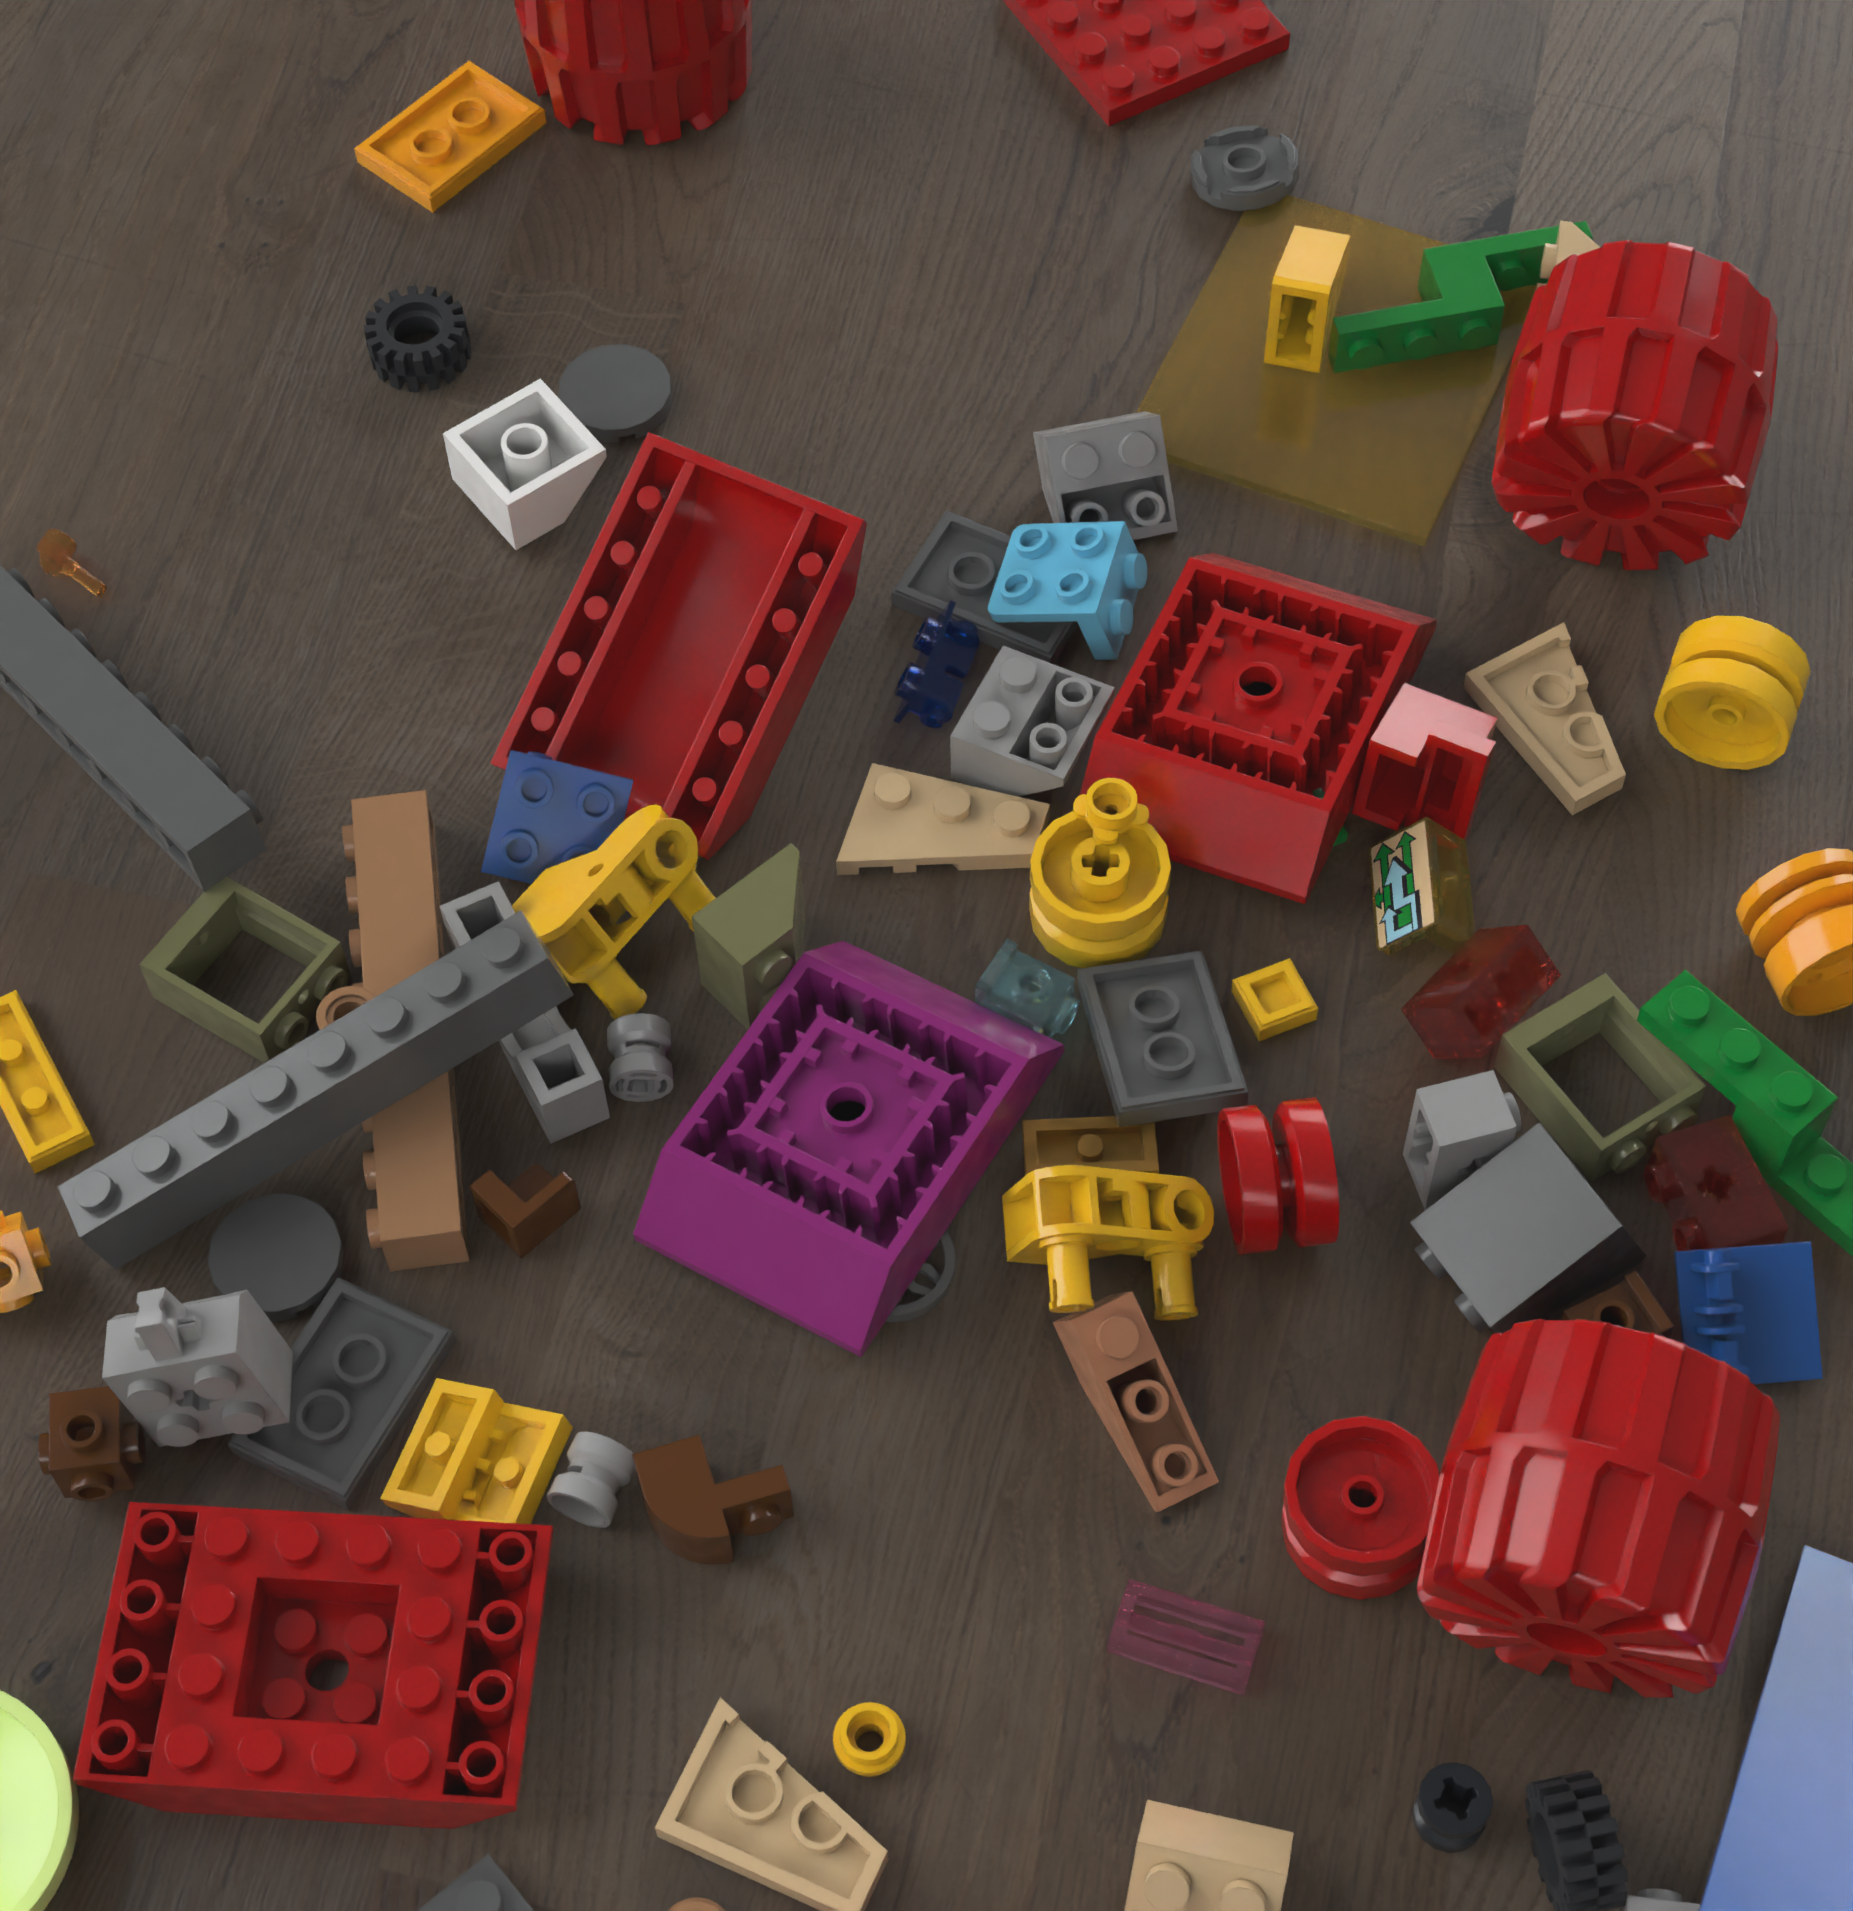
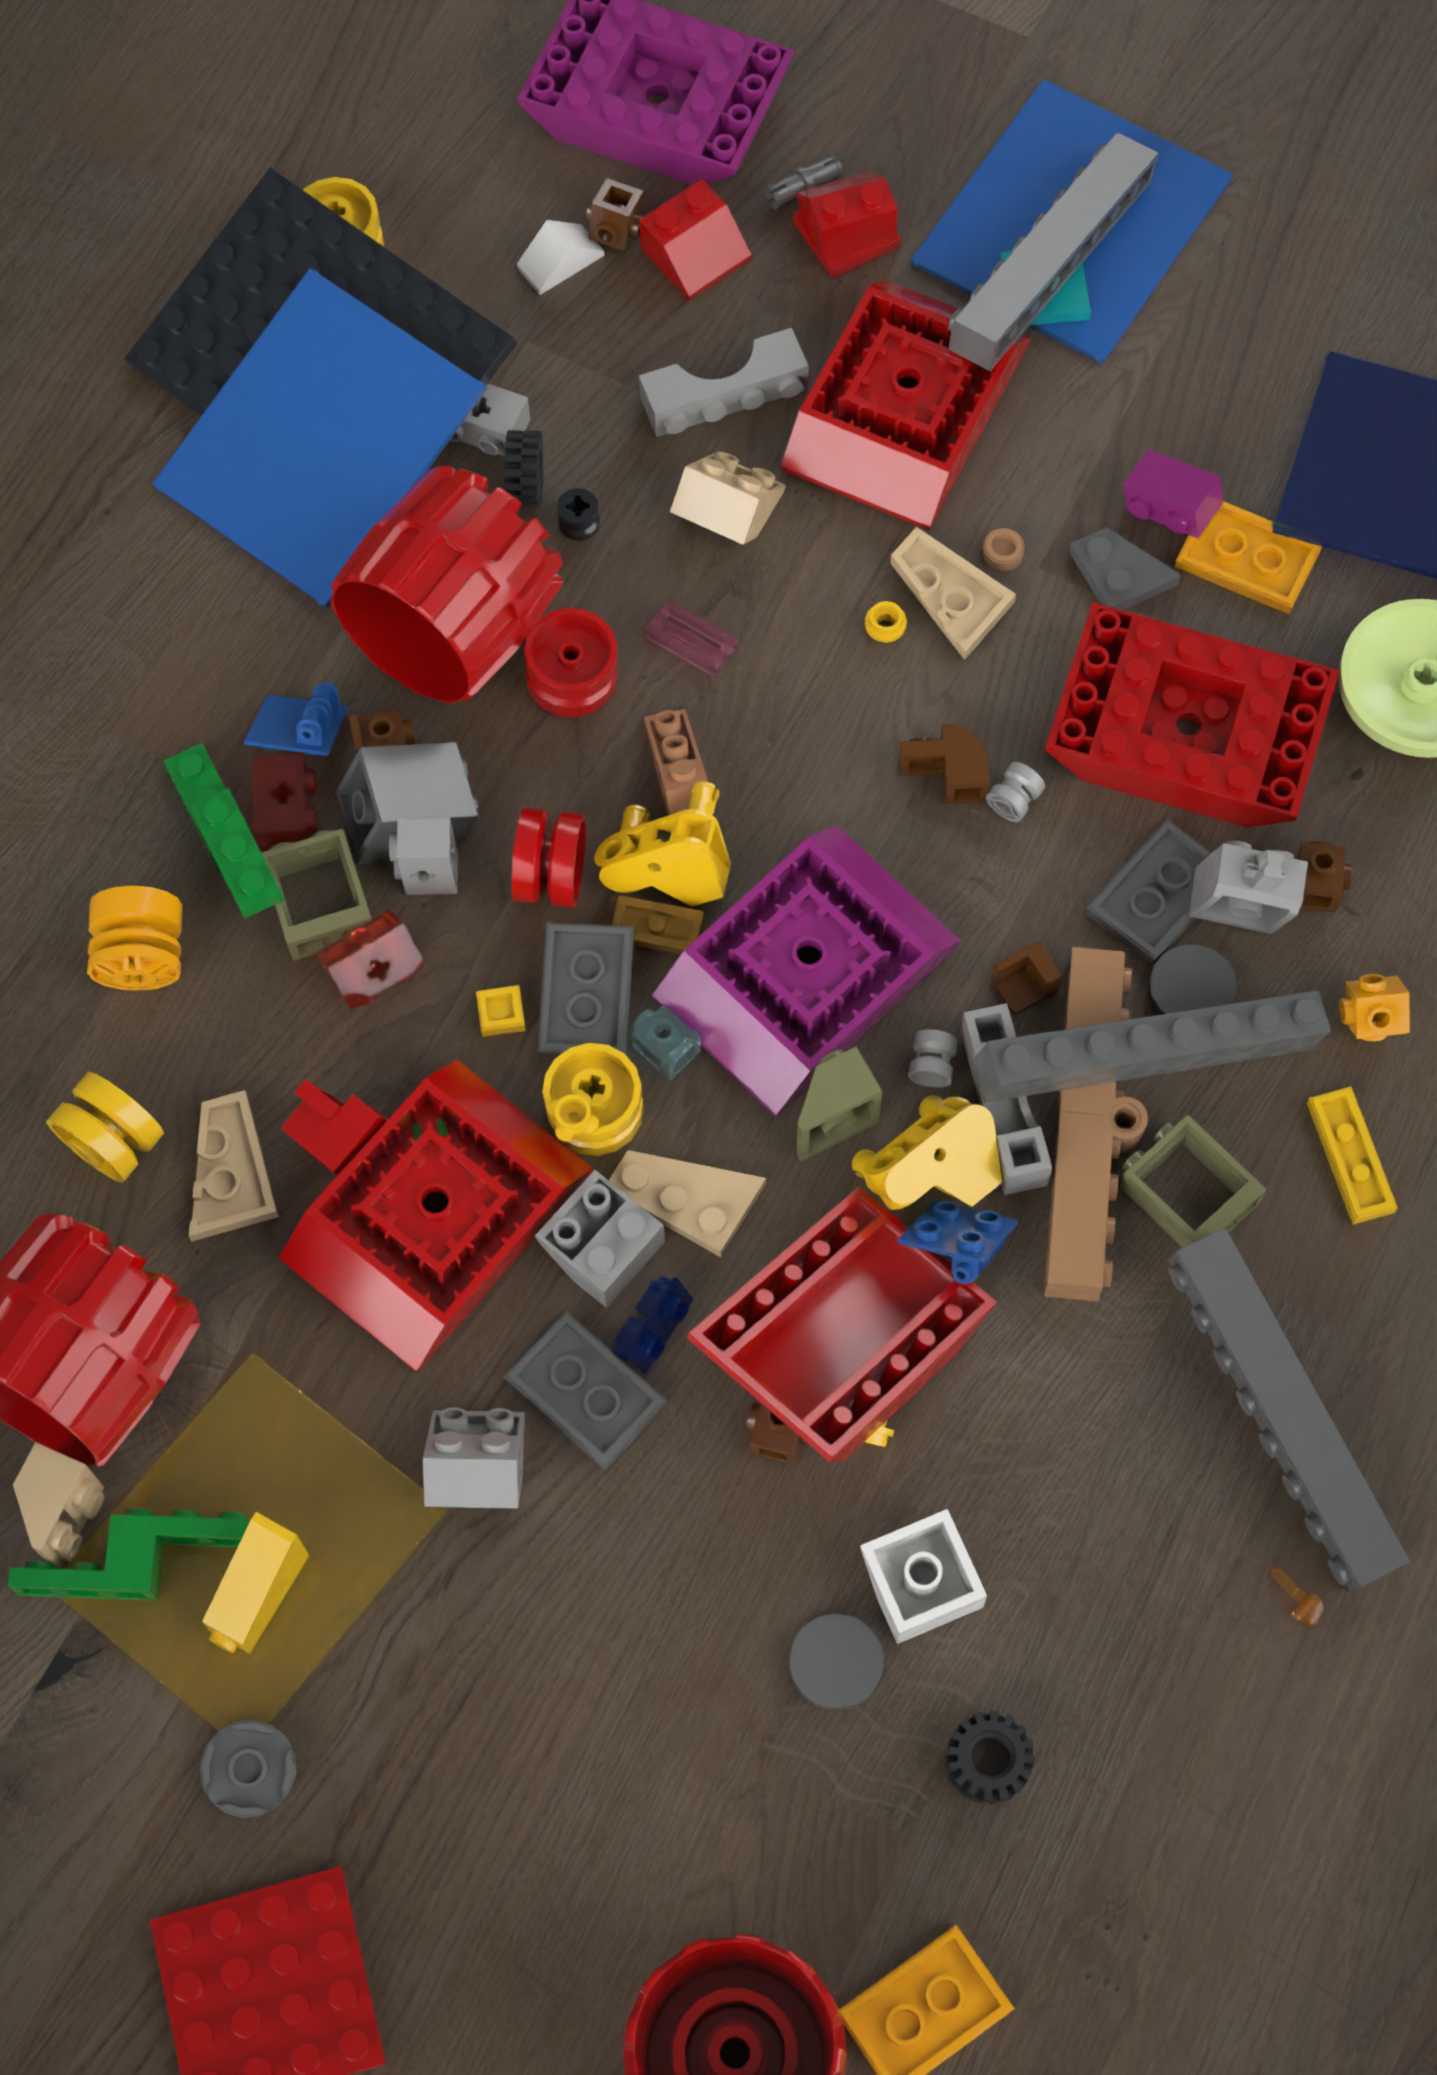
camera: 165 degrees left, 10 degrees up
(476, 1457) = (1083, 827): yellow slope -> none
(1072, 575) = (536, 1362): medium azure bracket -> none
(1421, 888) = (375, 1057): panel -> none

